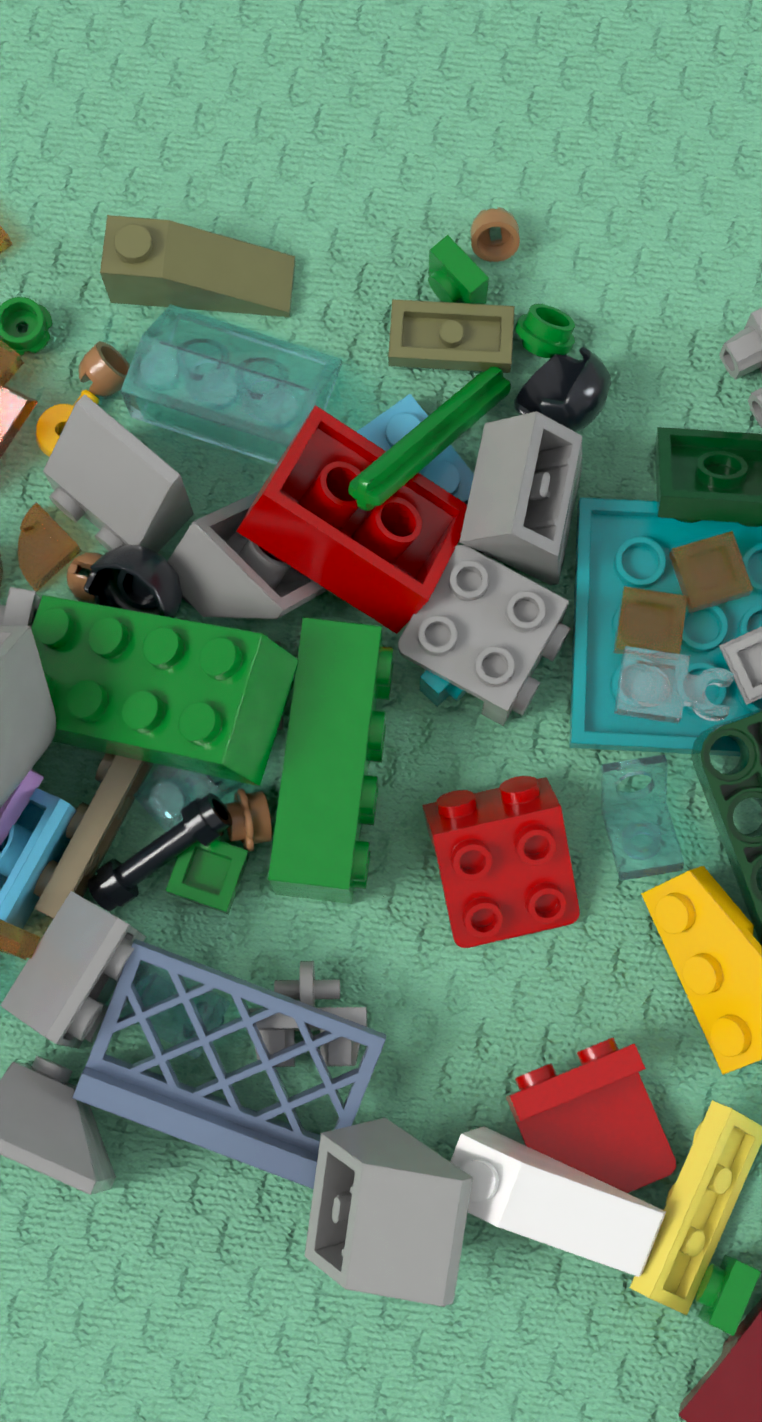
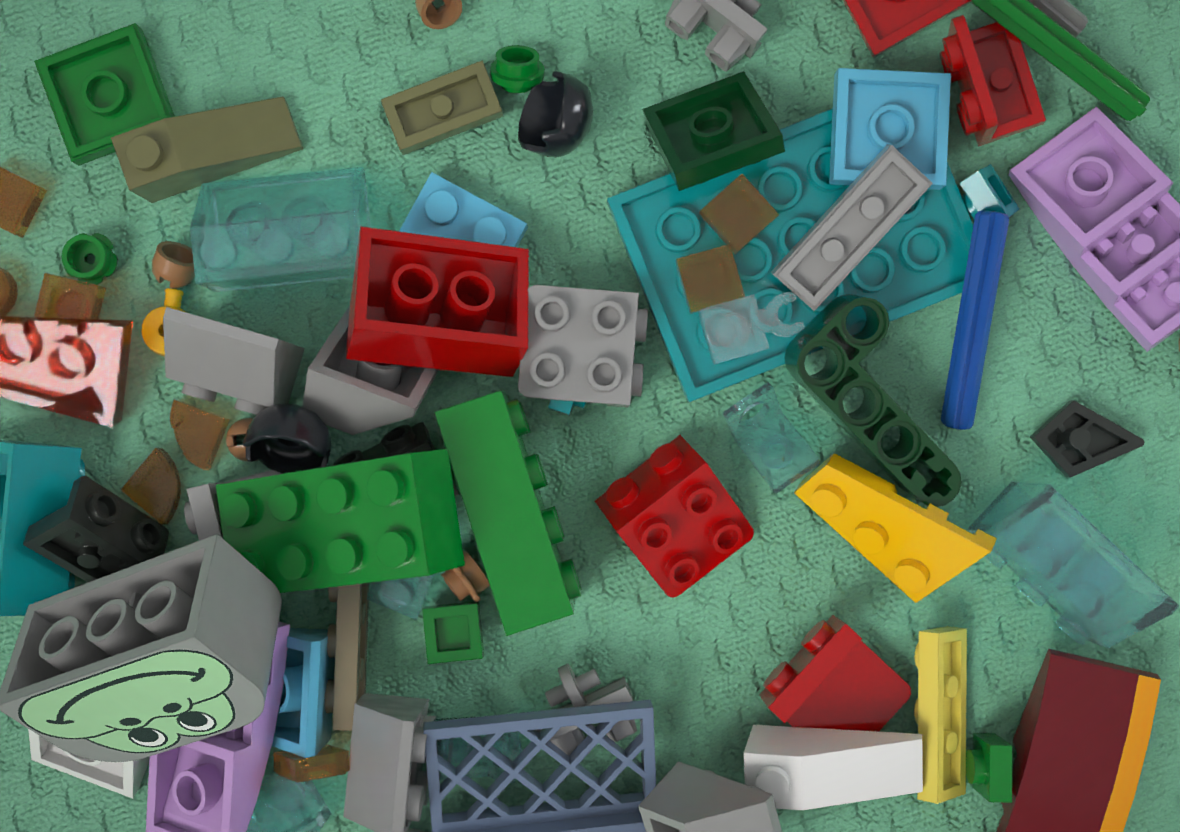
camera: 25 degrees left, 10 degrees up
(116, 171) = (103, 91): none -> green tile
(202, 822) = (430, 602): black bar -> none
(429, 439) = (465, 210): green axle -> none
(455, 275) = (422, 56): green plate -> none
(524, 494) = (562, 219): light grey slope -> none

